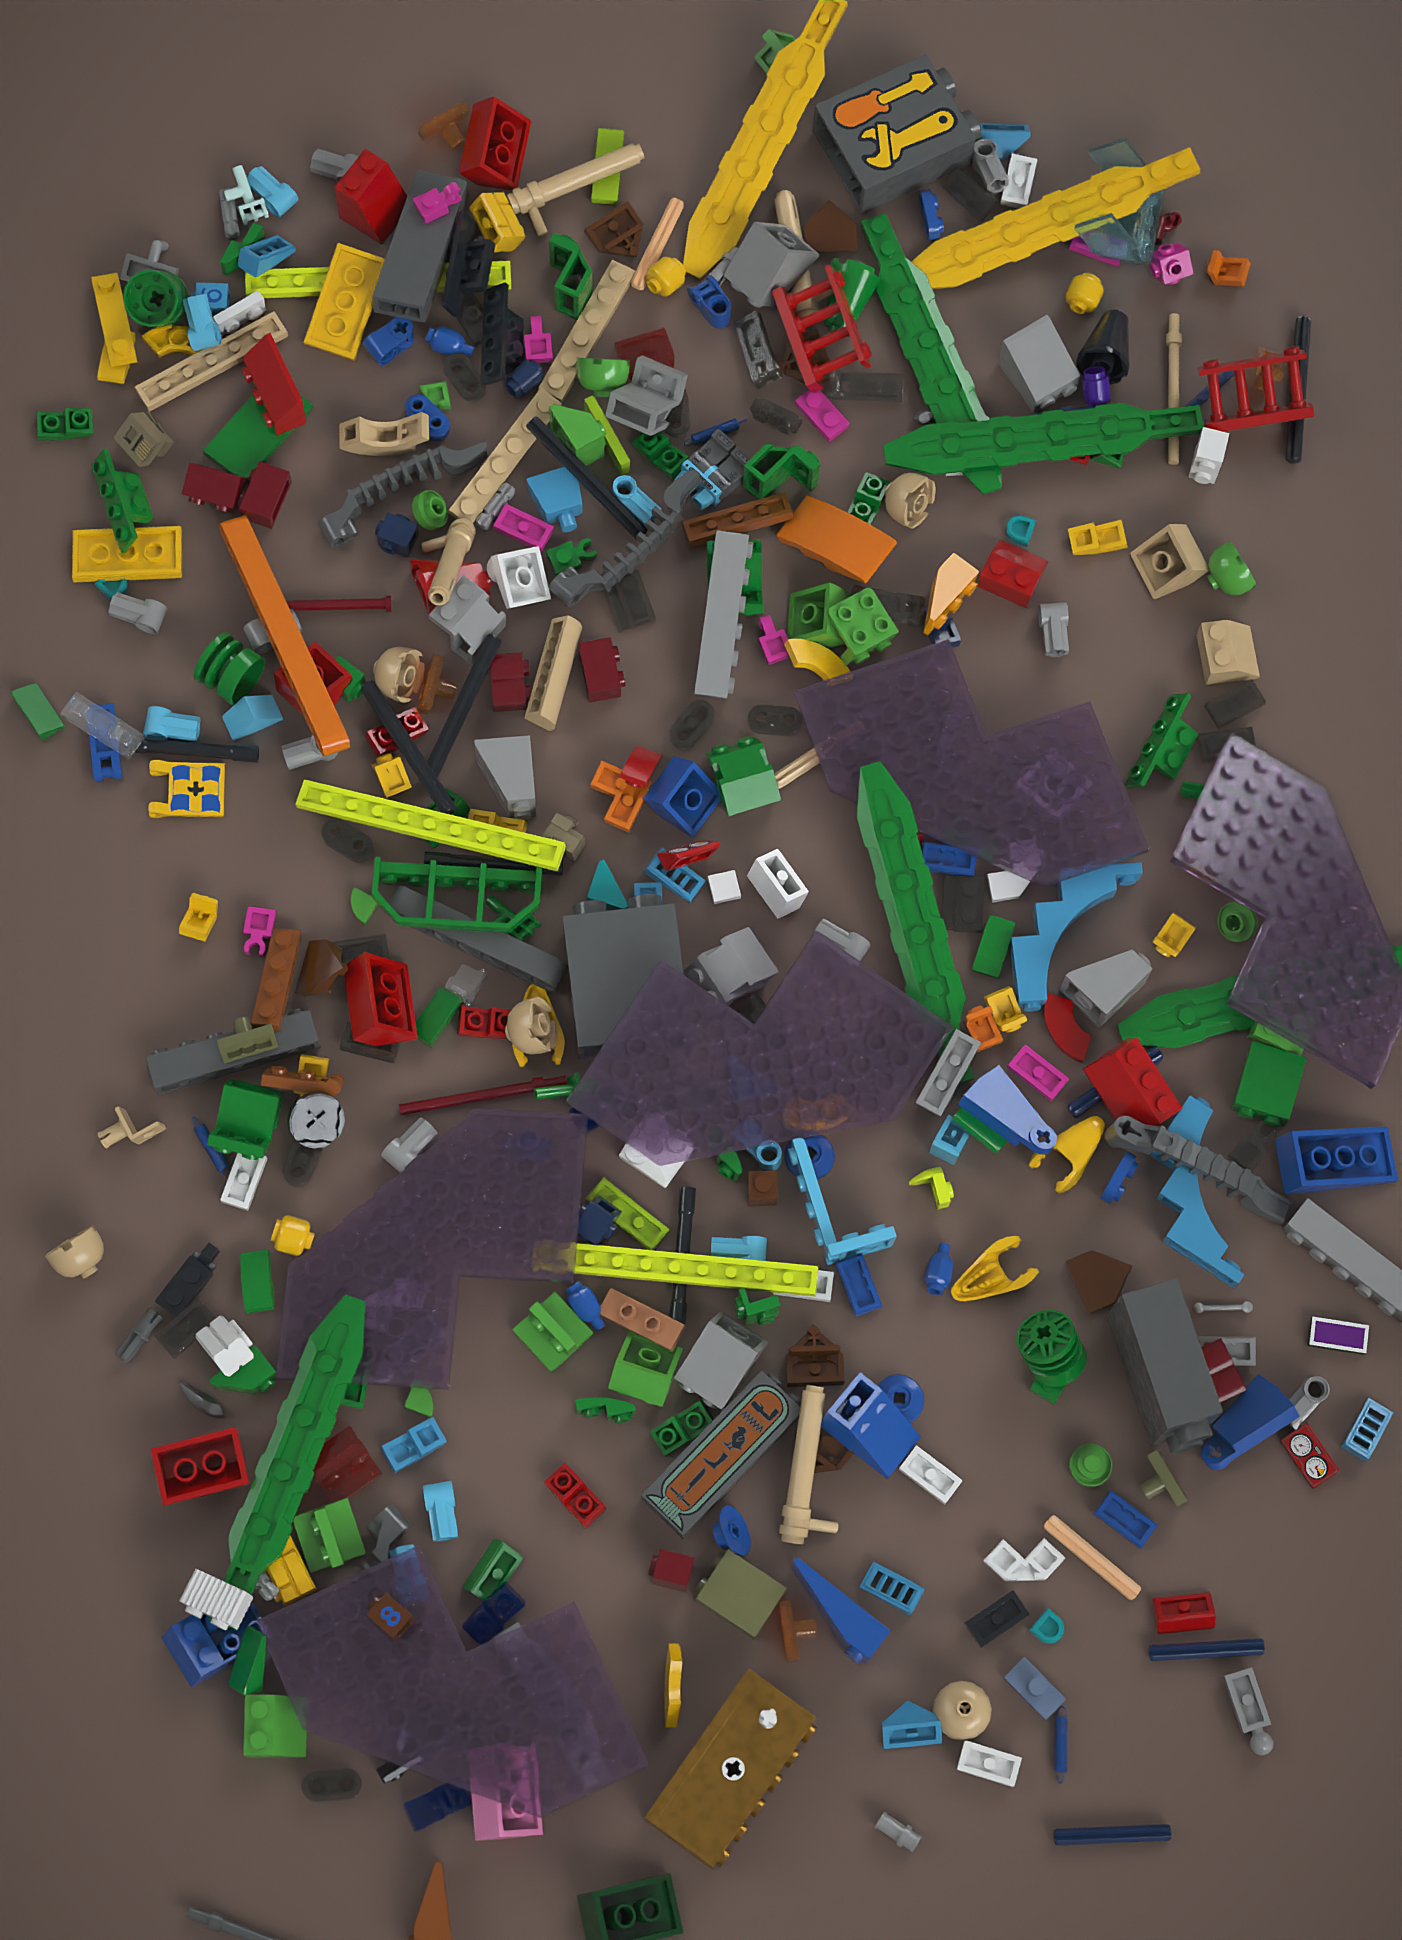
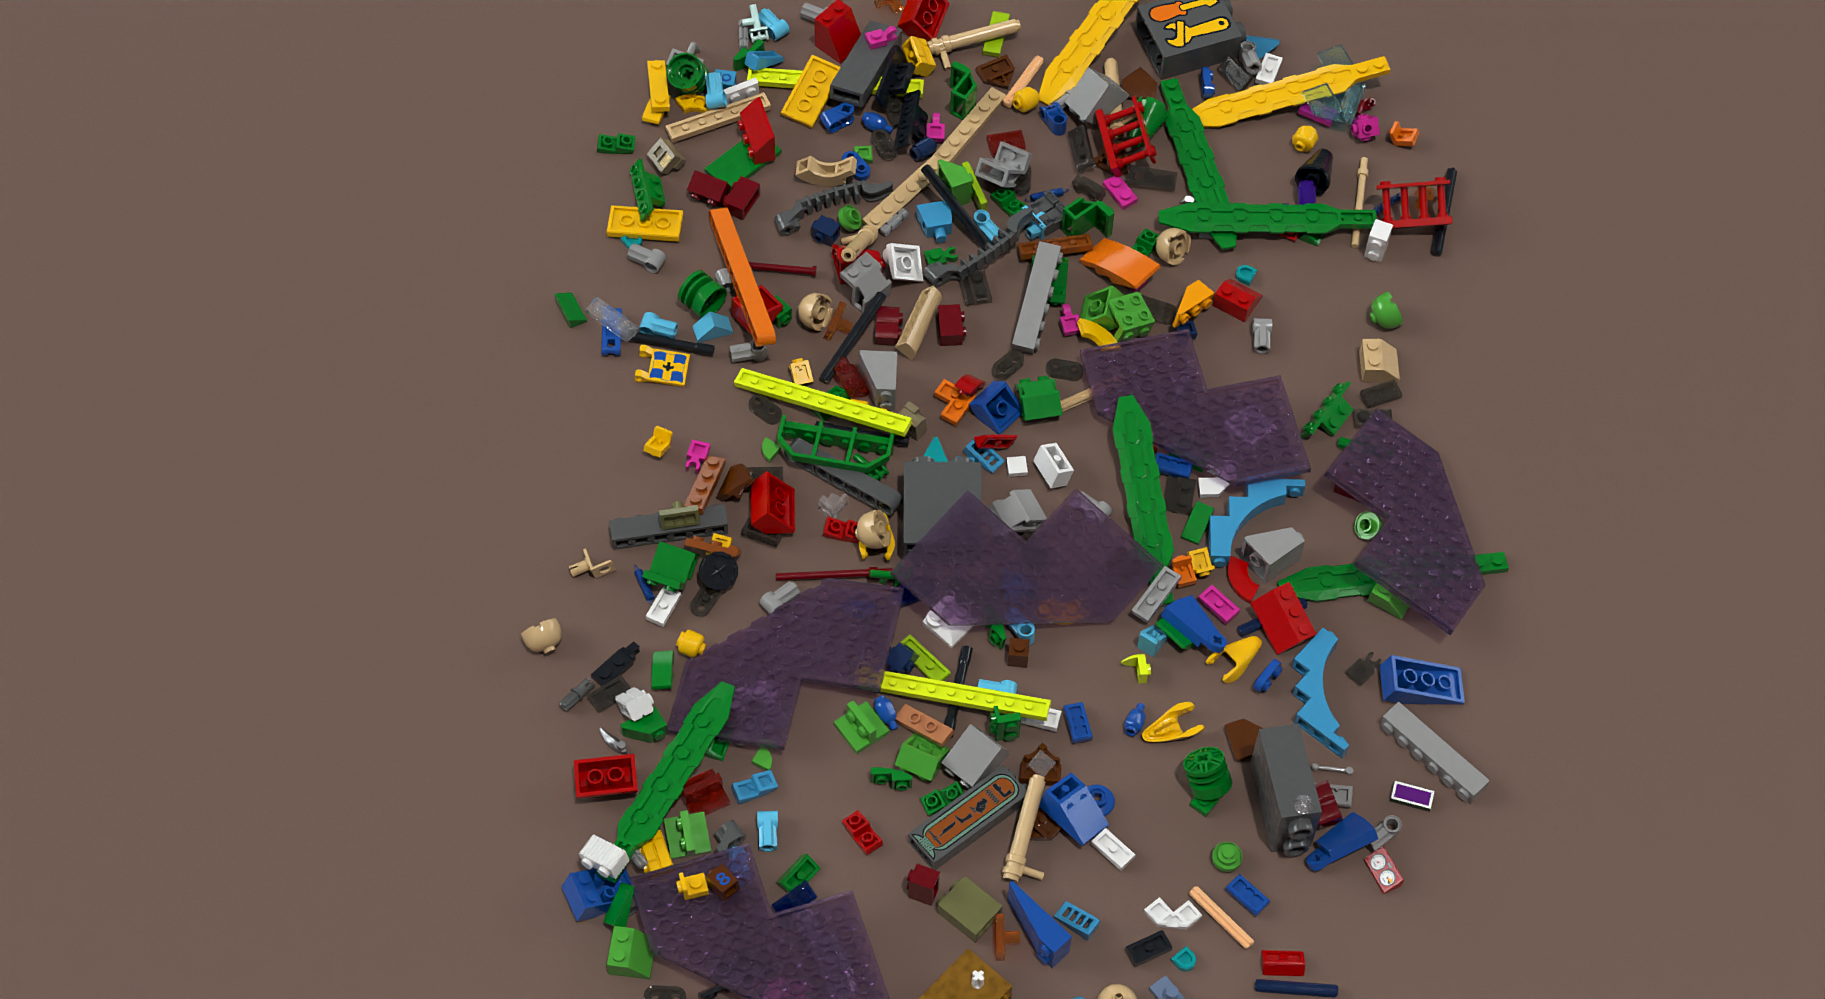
camera: 10 degrees right, 15 degrees down
(348, 1625) = (692, 886): none -> yellow bracket
(381, 741) = (810, 348): red slope -> none
(408, 748) = (814, 354): black axle -> none
(437, 1016) = (810, 523): green slope -> none
(466, 778) = (850, 378): none -> clear red bracket
(523, 527) = (910, 235): dark pink plate -> none
(602, 374) = (975, 149): bright green cylinder -> none
(672, 1697) = (913, 961): yellow tile -> none
(732, 1531) = (968, 866): blue piece -> none
(815, 1360) = (1041, 764): none -> clear tile
(823, 1159) = (1054, 646): blue piece -> none
(851, 1244) = (1088, 692): medium azure bracket -> none
(1038, 365) = (1269, 175): light grey slope -> none
(1097, 539) = (1296, 285): yellow slope -> none
(1147, 1138) = (1363, 699): dark grey piece -> none
(1163, 1480) = (1277, 872): olive tile -> none
(1169, 560) = (1345, 302): tan slope -> none
(1173, 935) = (1323, 530): yellow bracket -> none
(1196, 1408) = (1303, 804): none -> clear plate
(1268, 1084) = (1379, 629): green brick -> none
(1355, 1448) = (1419, 871): dark azure slope -> none

